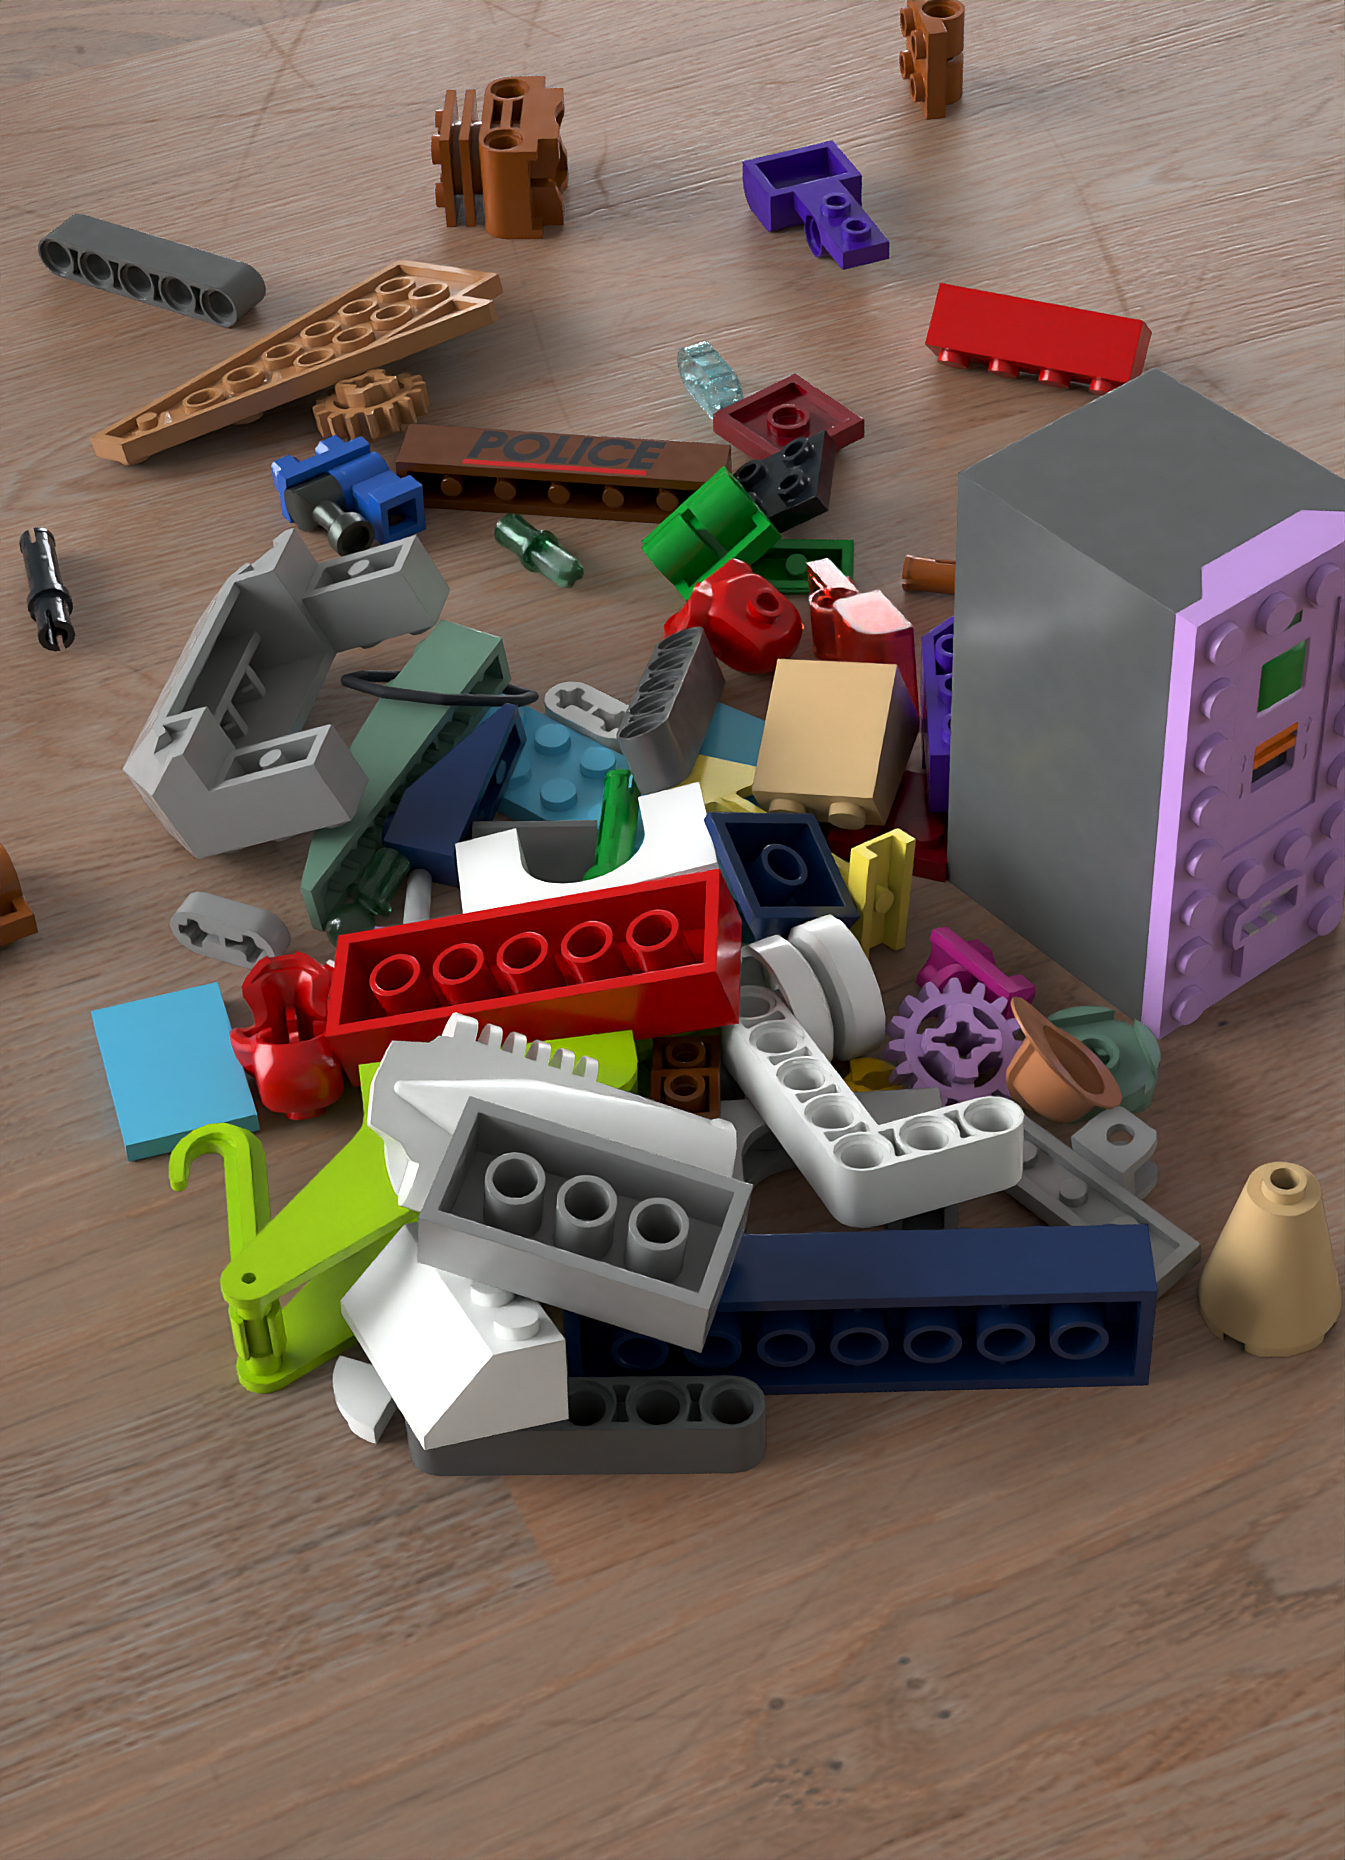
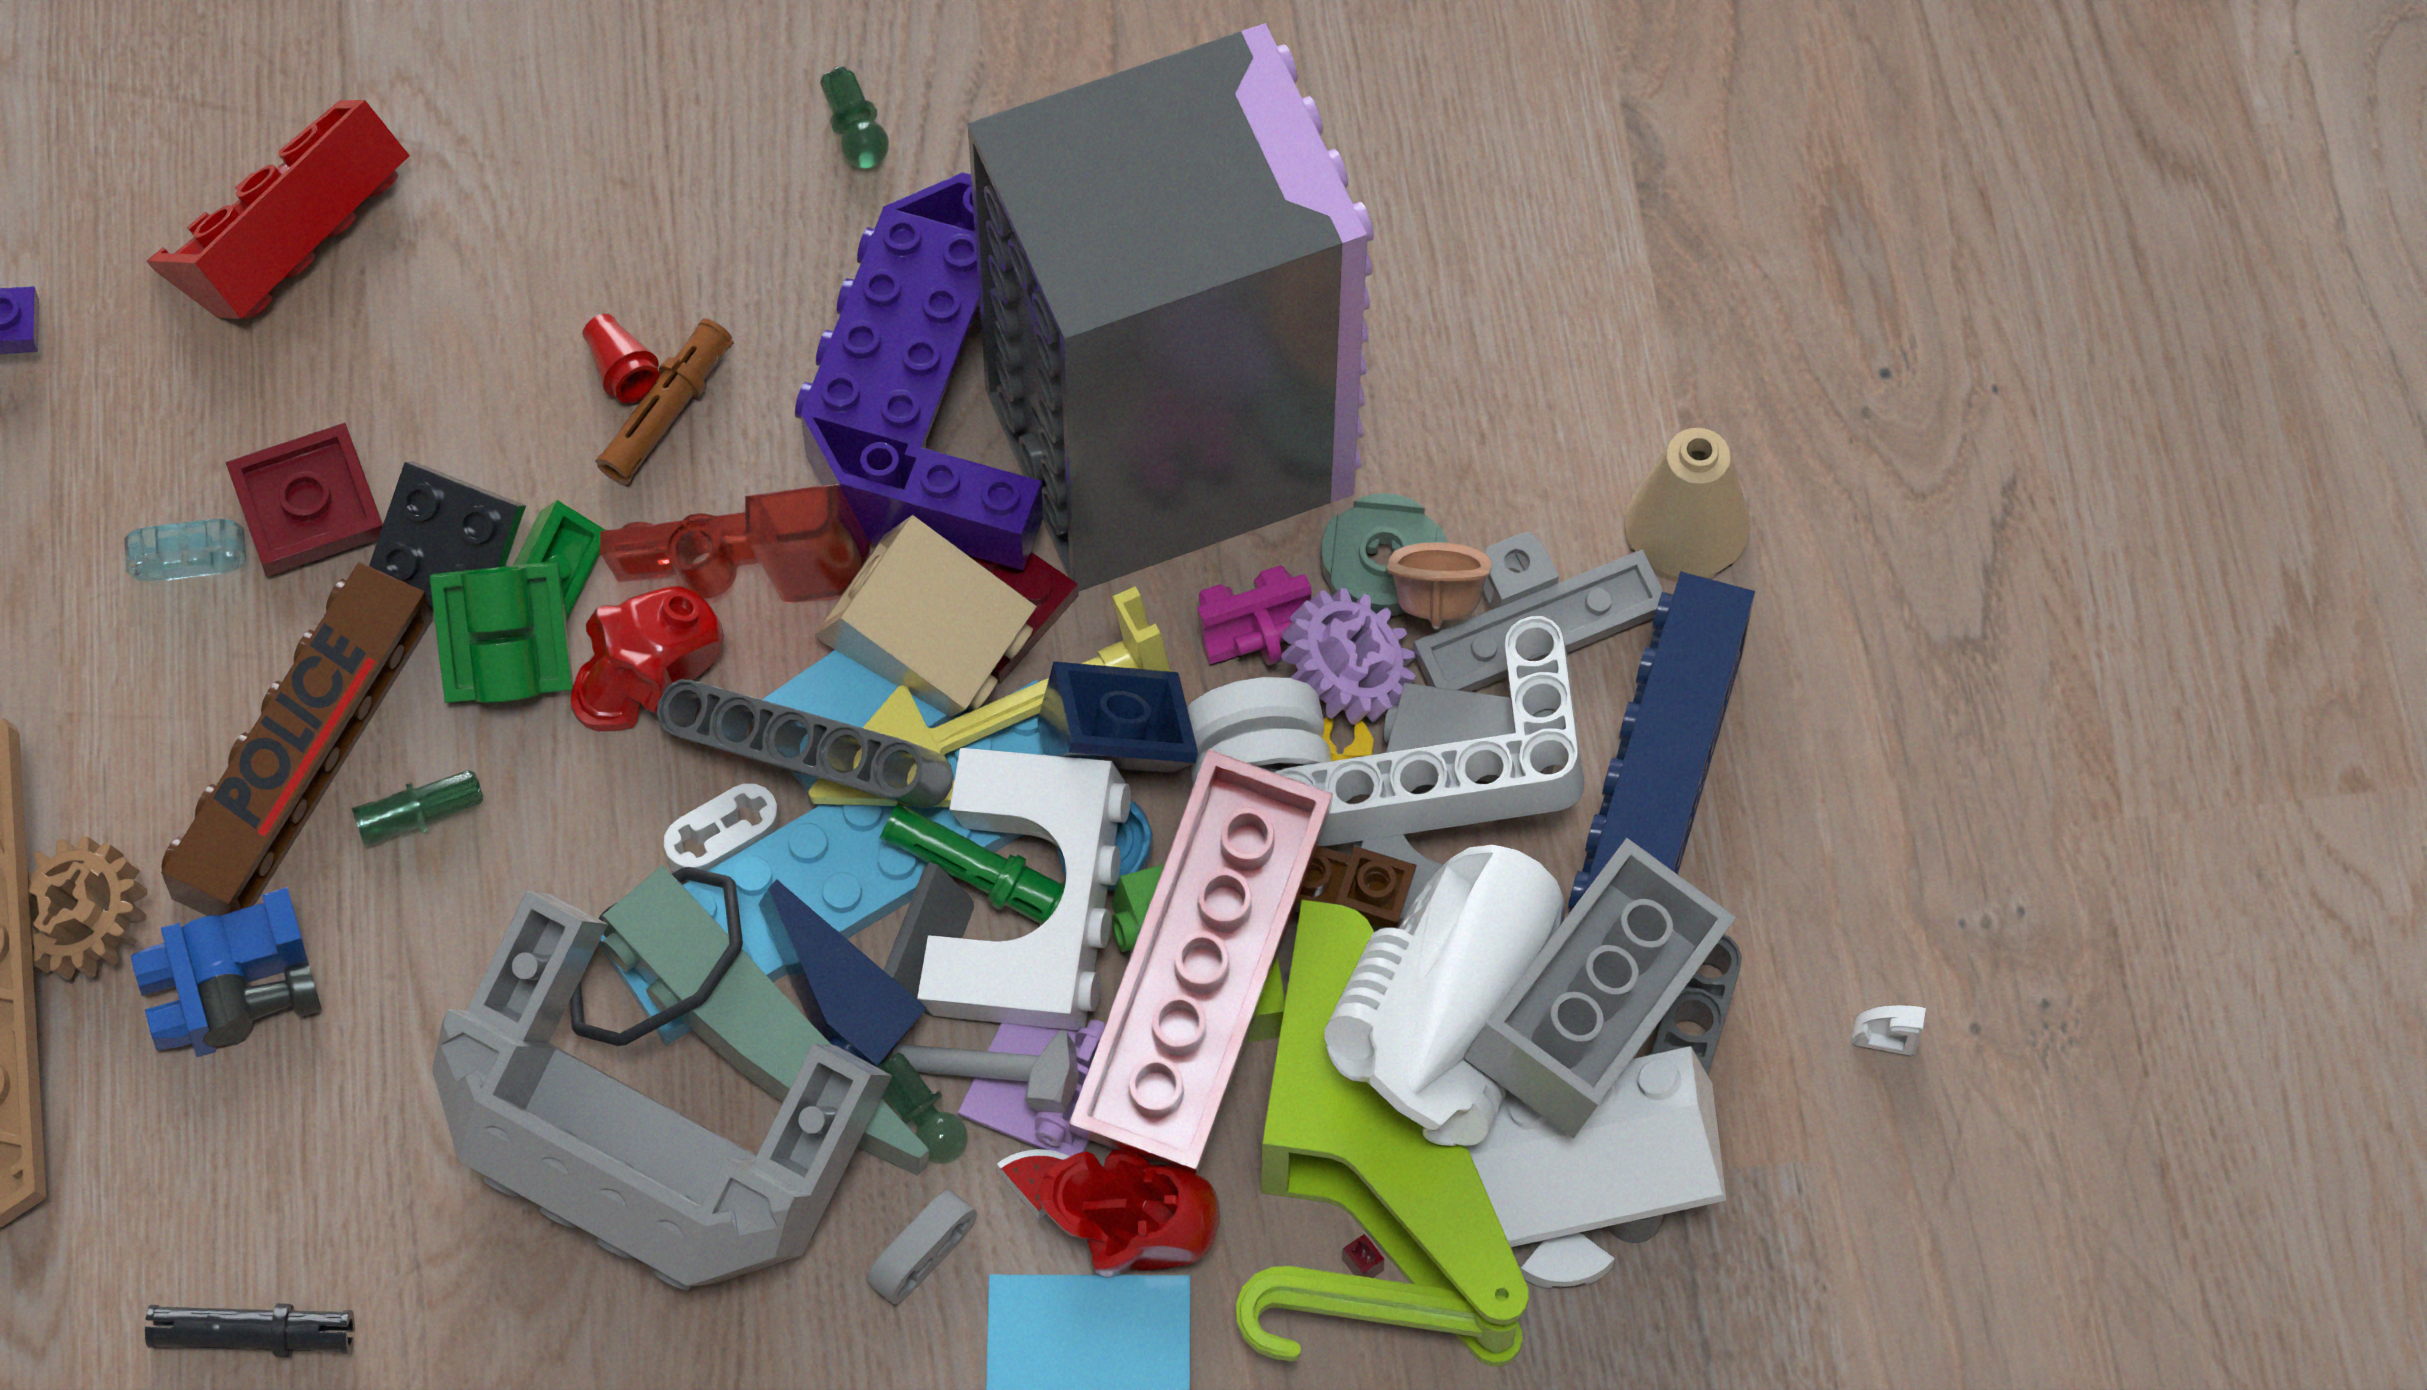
camera: 75 degrees left, 20 degrees up
(730, 1613) = (1889, 1029): none -> white tile

